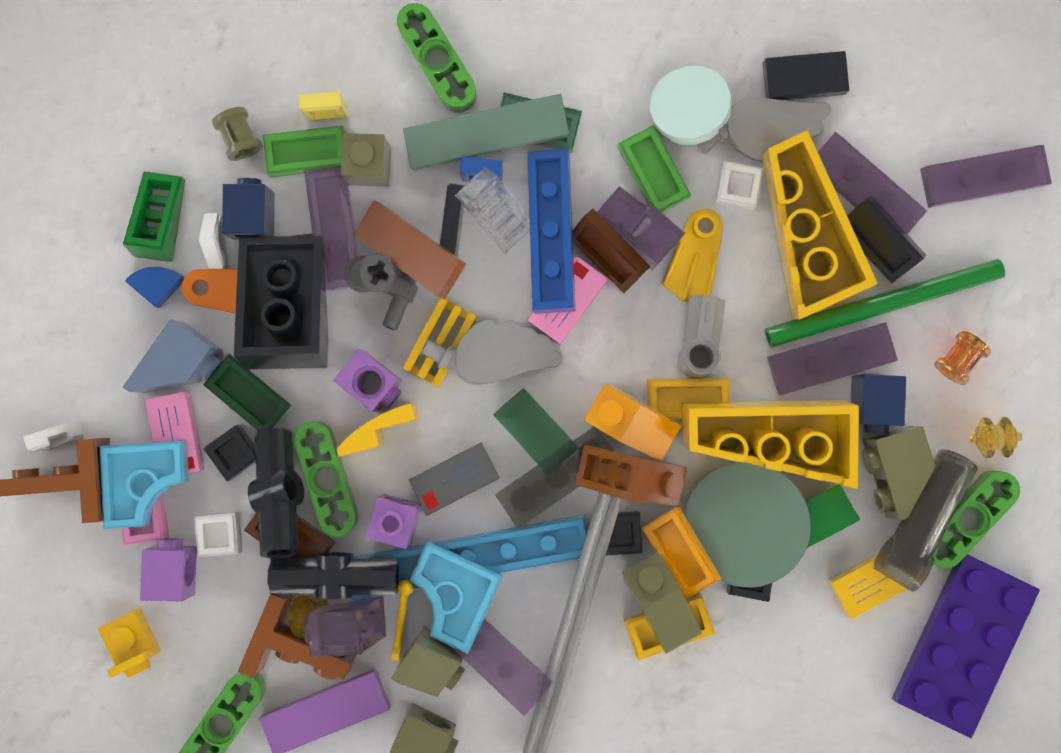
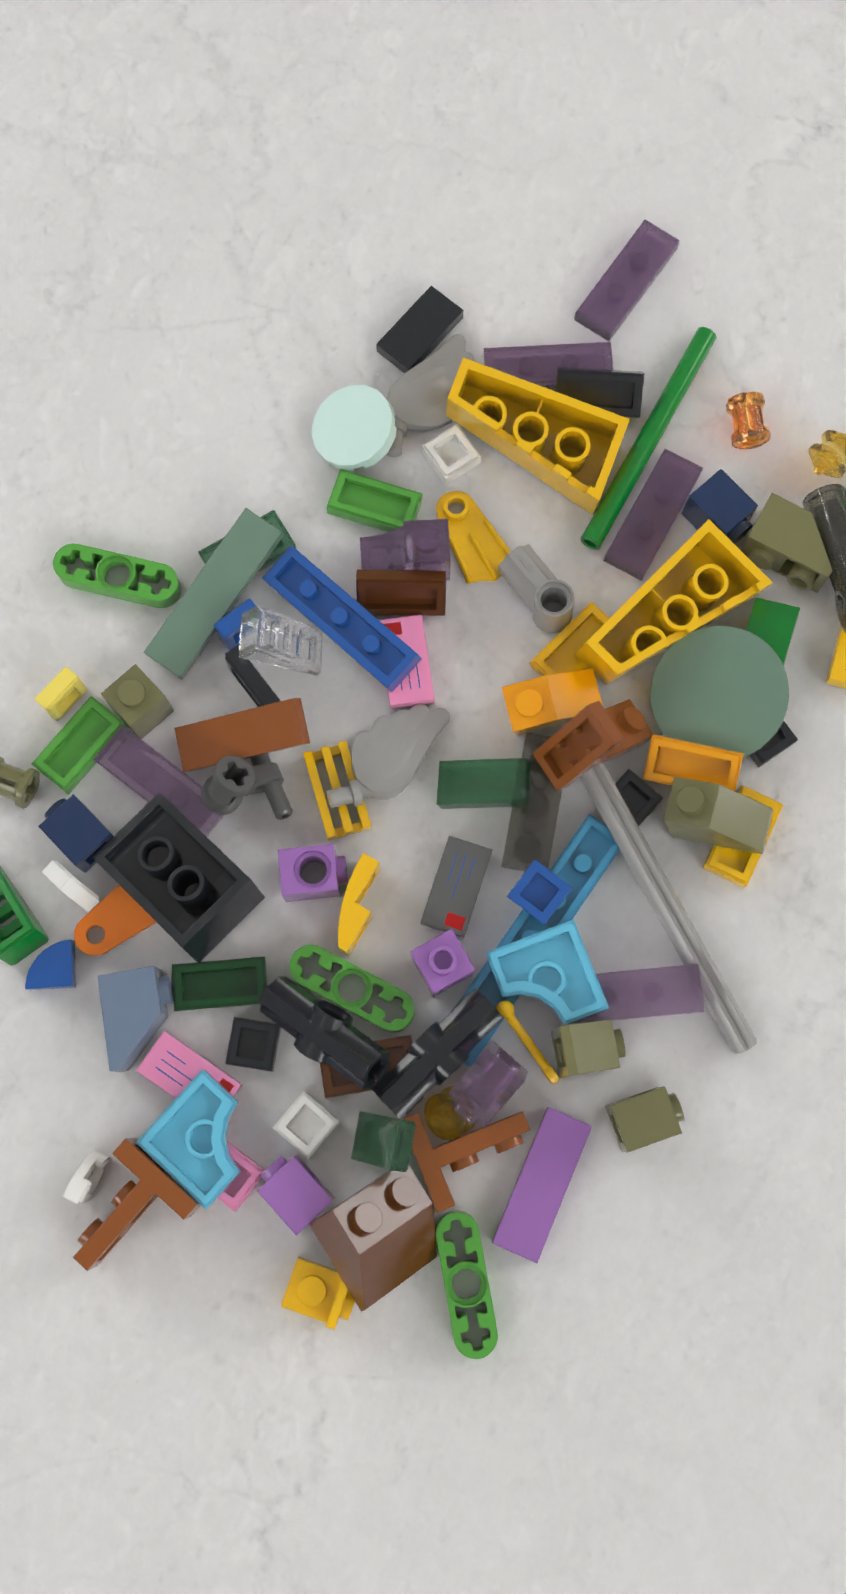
camera: 45 degrees left, 10 degrees down
(191, 647) = (379, 1235): none -> reddish brown slope
(246, 597) = (383, 1141): none -> clear green tile
(499, 536) = (539, 891): none -> blue tile

